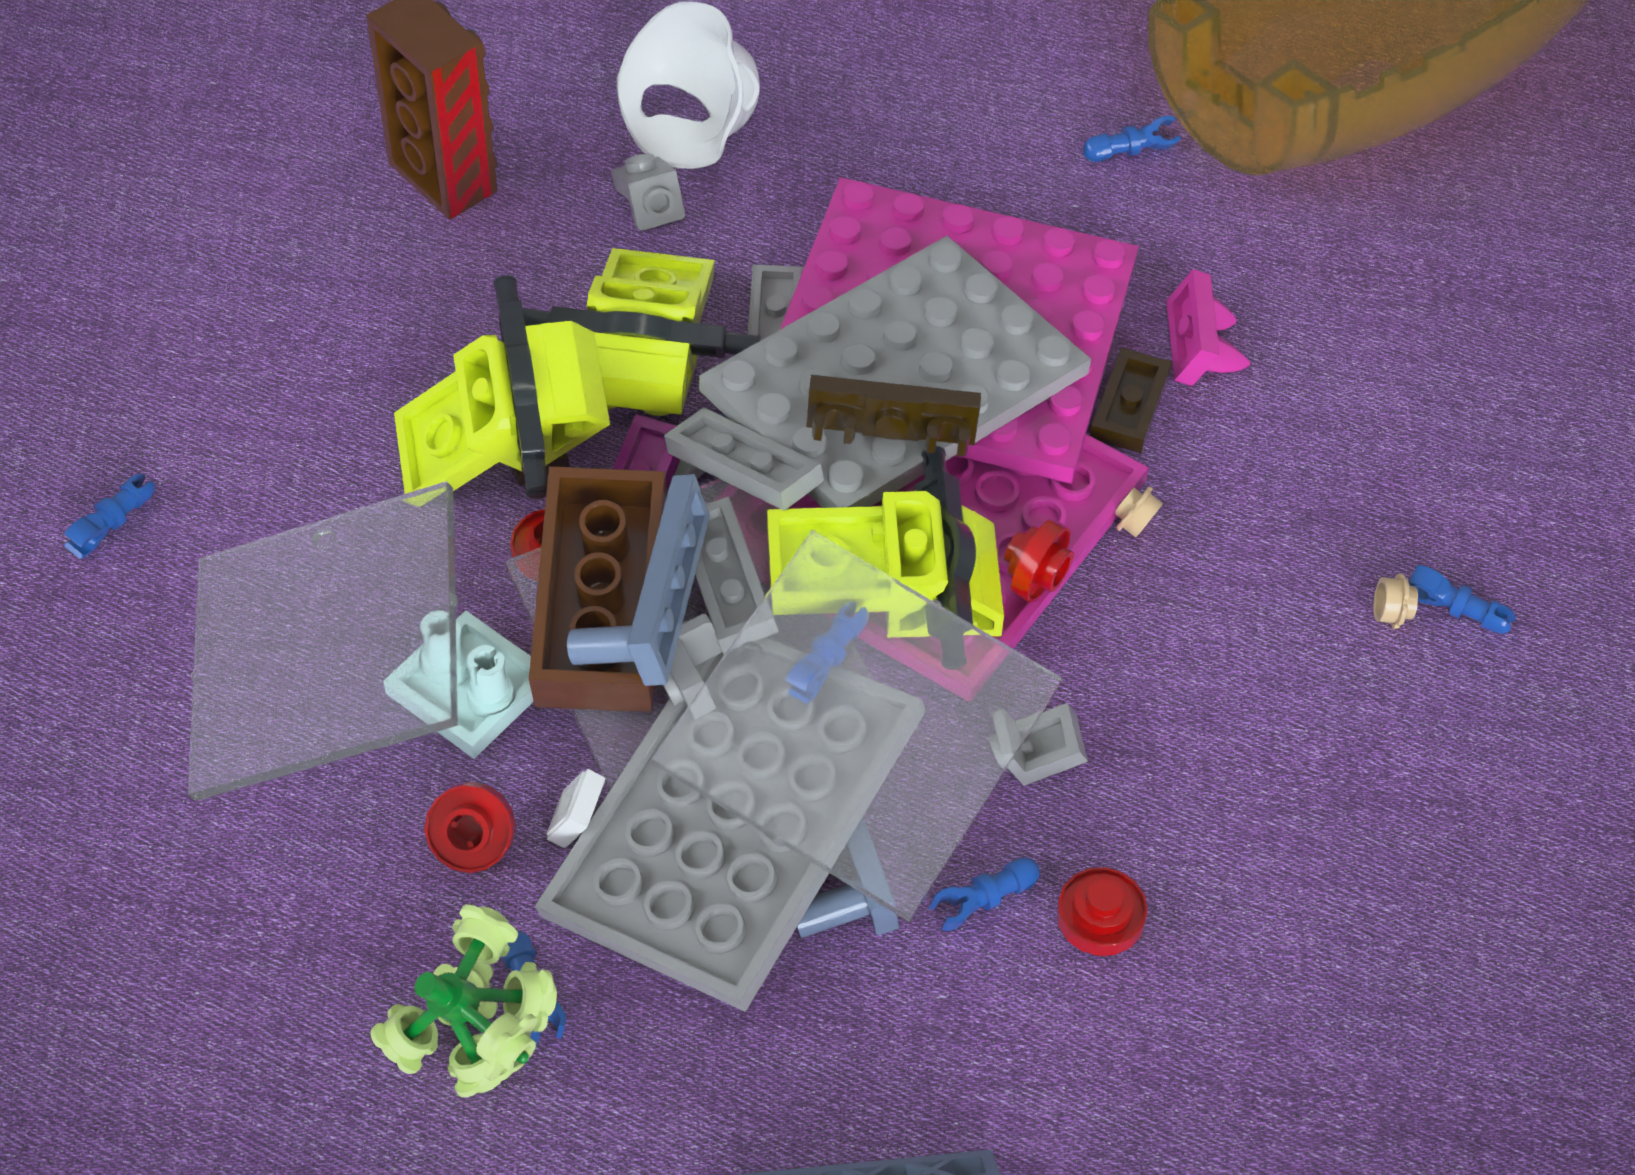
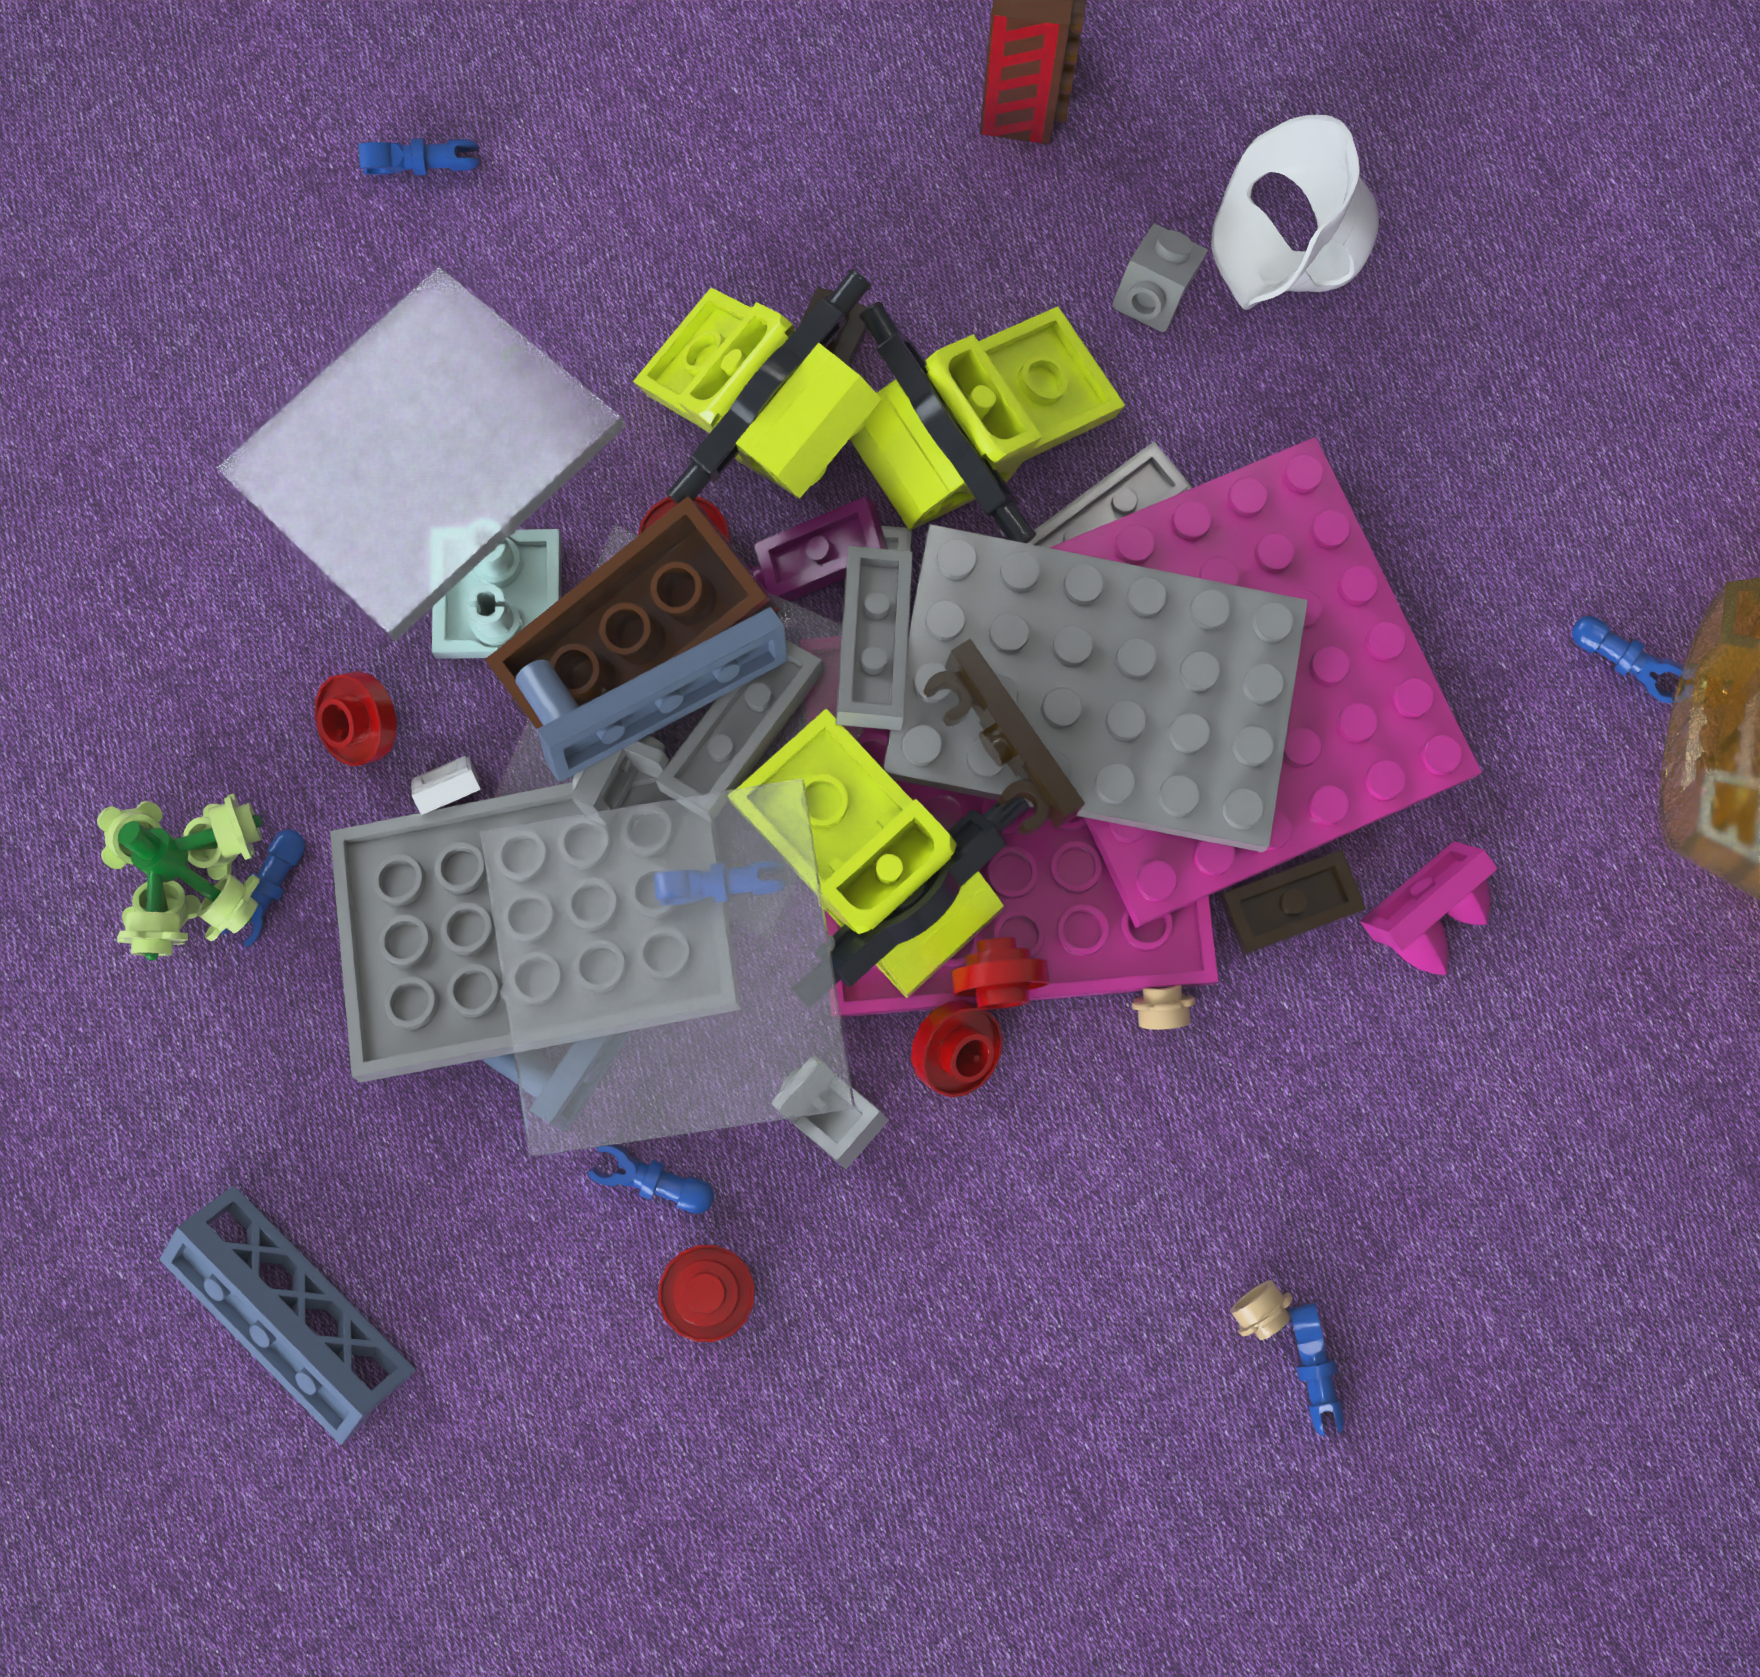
camera: 50 degrees right, 25 degrees up
(1060, 637) = (956, 1048): none -> red plate

